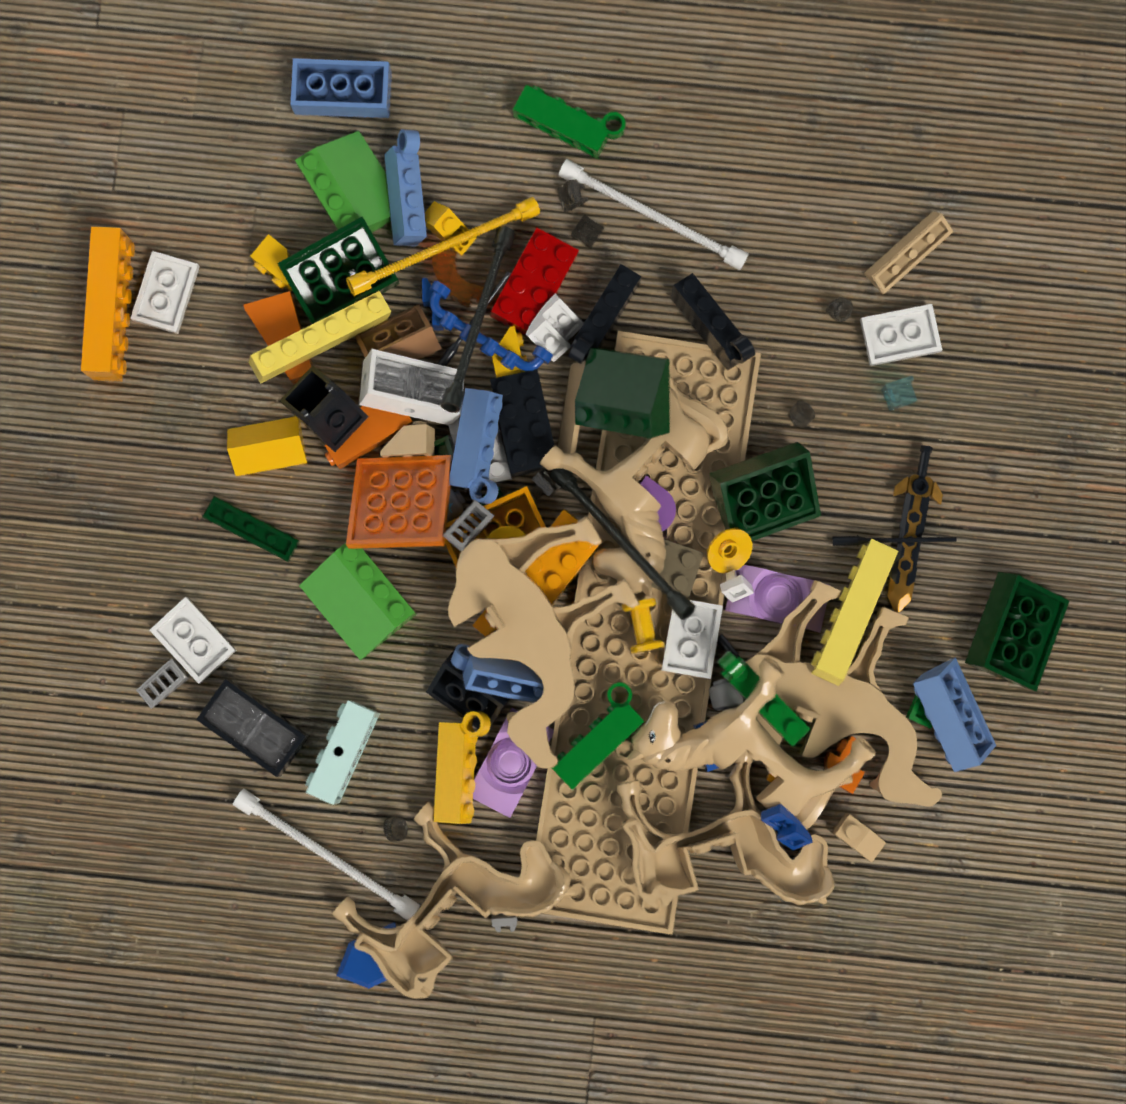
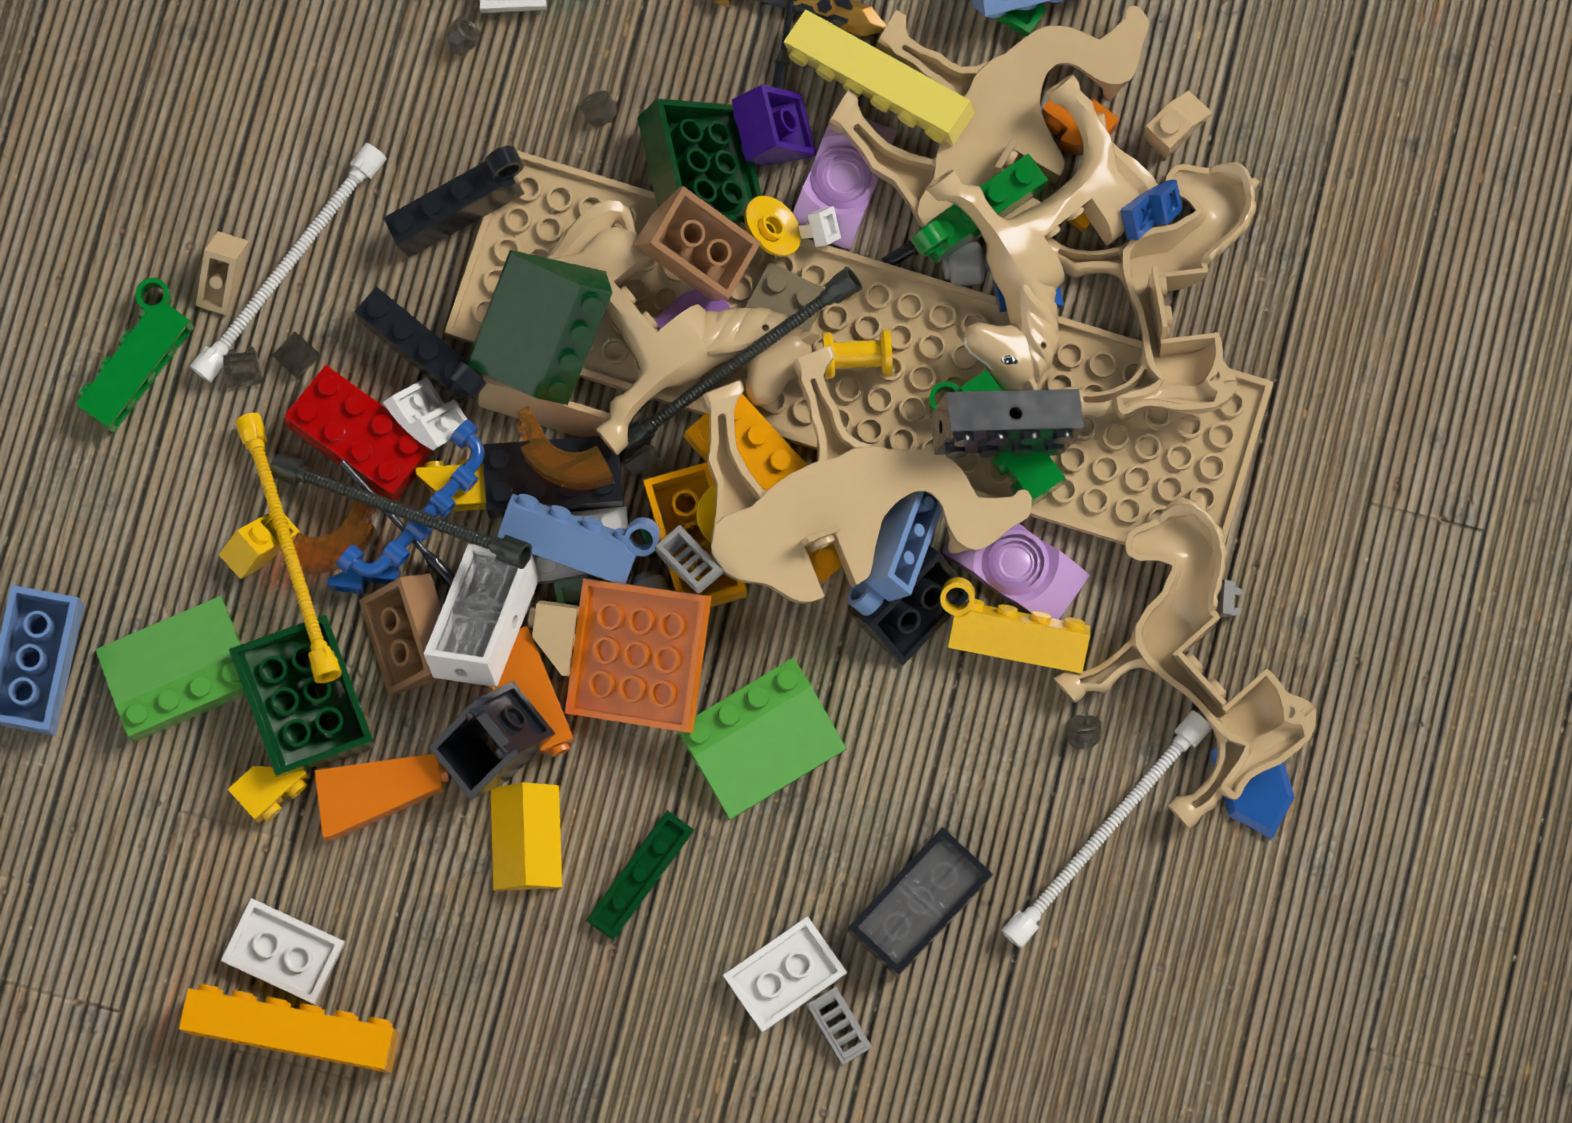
camera: 85 degrees left, 5 degrees down
(319, 337) = (390, 733): light yellow brick -> none
(335, 769) = (947, 768): light aqua brick -> none
(405, 190) = (197, 590): medium blue hinge -> none
(525, 420) = (566, 469): none -> clear orange arch
(600, 740) = (1006, 422): none -> black brick
(638, 169) = (221, 272): none -> tan slope
(693, 641) = (890, 295): white plate -> none
(702, 497) = (698, 244): none -> medium nougat slope
(807, 541) = (773, 126): none -> dark purple slope

